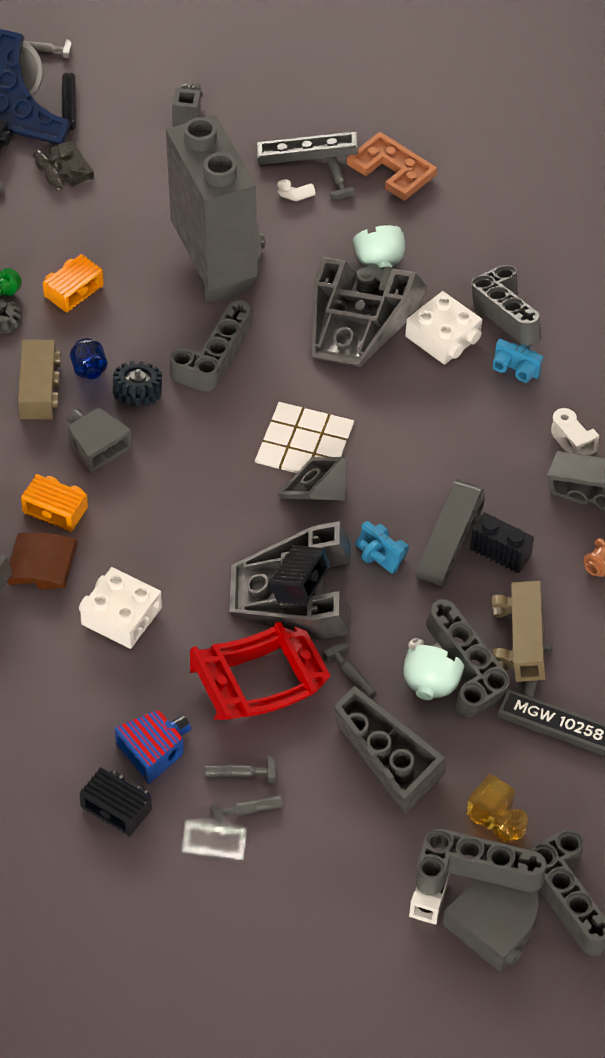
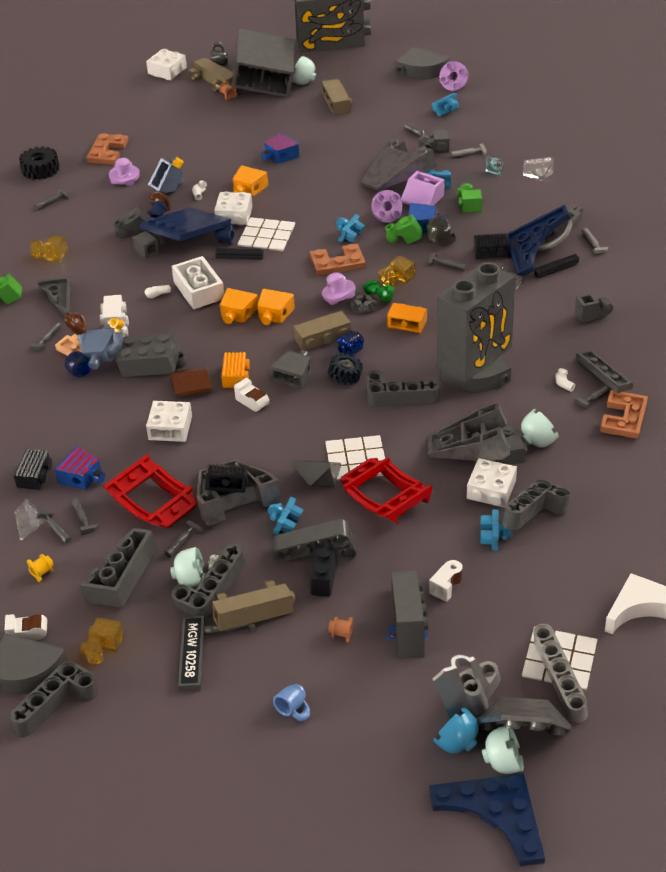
camera: 70 degrees right, 10 degrees down
(121, 503) = (250, 395): none -> white leg
(324, 843) = (40, 566): none -> yellow brick
(422, 402) = (411, 489): none -> red wedge
(526, 875) = (38, 614): dark grey beam -> none

